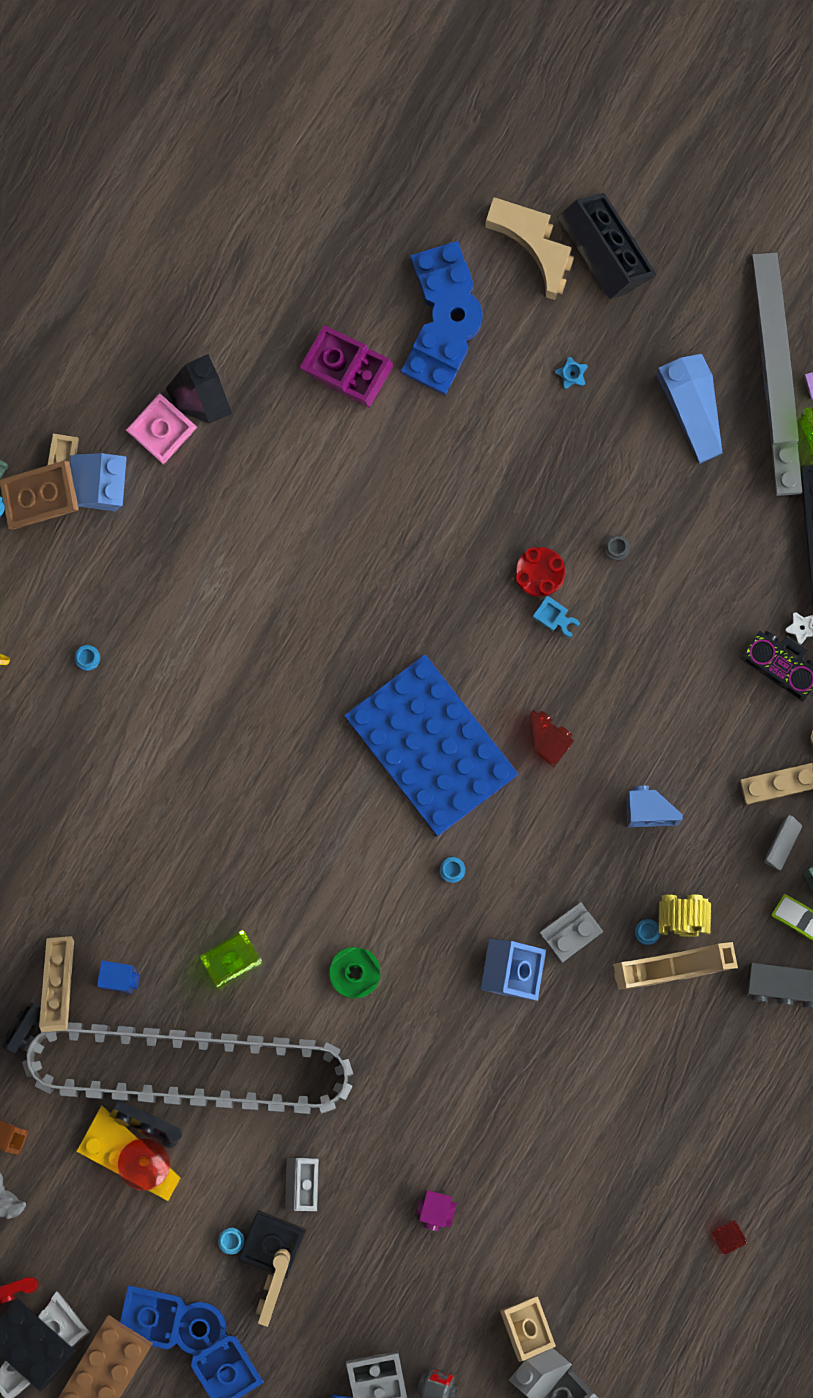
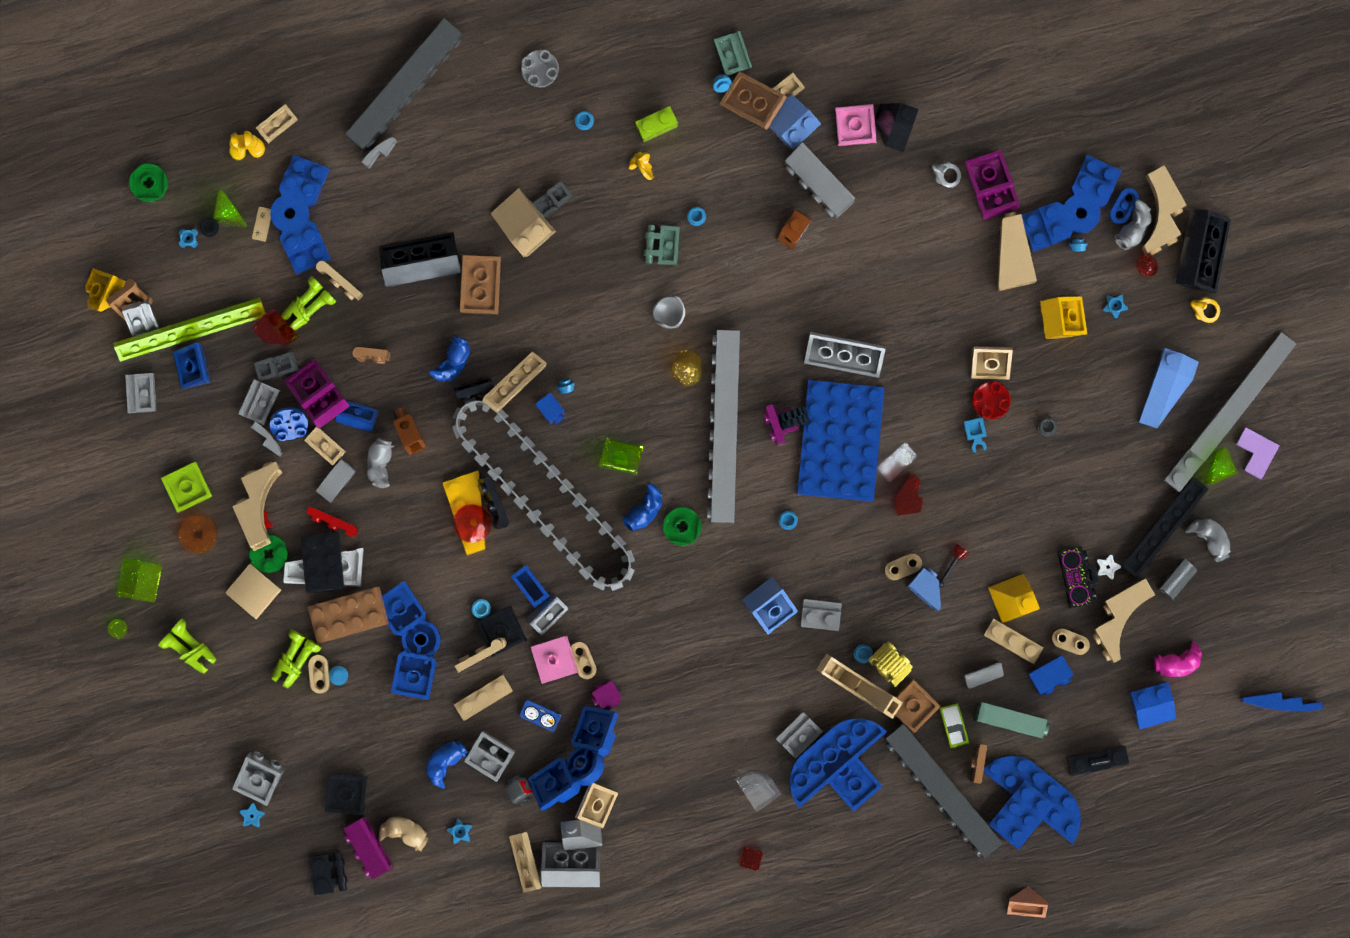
camera: 45 degrees right, 5 degrees up
(85, 710) = (668, 245): none -> sand green plate
(111, 941) = (565, 386): none -> dark azure plate
(146, 774) = (669, 312): none -> light grey helmet
(176, 513) = (819, 181): none -> light grey slope
(195, 582) = (794, 229): none -> dark orange torso
(215, 813) = (687, 368): none -> clear yellow hair
(260, 1172) = (530, 586): none -> blue brick
(283, 399) = (940, 169): none -> light grey piece
(306, 835) = (725, 426): none -> light grey brick
(306, 992) = (643, 514): none -> blue animal
(316, 1328) = (483, 697): none -> tan plate
(351, 1223) = (554, 659): none -> bright pink plate
(357, 657) = (844, 354): none -> light grey slope
(359, 777) = (784, 421): none -> plate
(380, 1197) = (583, 660): none -> tan plate
(389, 1292) = (540, 715): none -> slope
(433, 414) = (1015, 260): none -> tan slope
(471, 1333) = (584, 765): none -> blue plate
(482, 348) = (1078, 244): none -> dark azure plate
(493, 272) = (1123, 206): none -> blue plate
(505, 535) = (991, 362): none -> tan slope
(505, 714) = (897, 462): none -> clear slope
(524, 288) = (1134, 232): none -> light grey animal
(533, 429) = (1063, 317): none -> yellow slope
(567, 307) = (1147, 266): none -> clear red hat
(606, 810) = (903, 566): none -> tan plate
(648, 748) = (959, 554): none -> hinge
(653, 302) = (1200, 305): none -> yellow piece
(661, 1070) = (799, 735): none -> light grey plate
(671, 1160) = (758, 788): none -> clear brick
(723, 1063) = (836, 762): none -> blue plate
(741, 741) = (1013, 598): none -> yellow slope
(749, 933) = (916, 706): none -> medium nougat plate

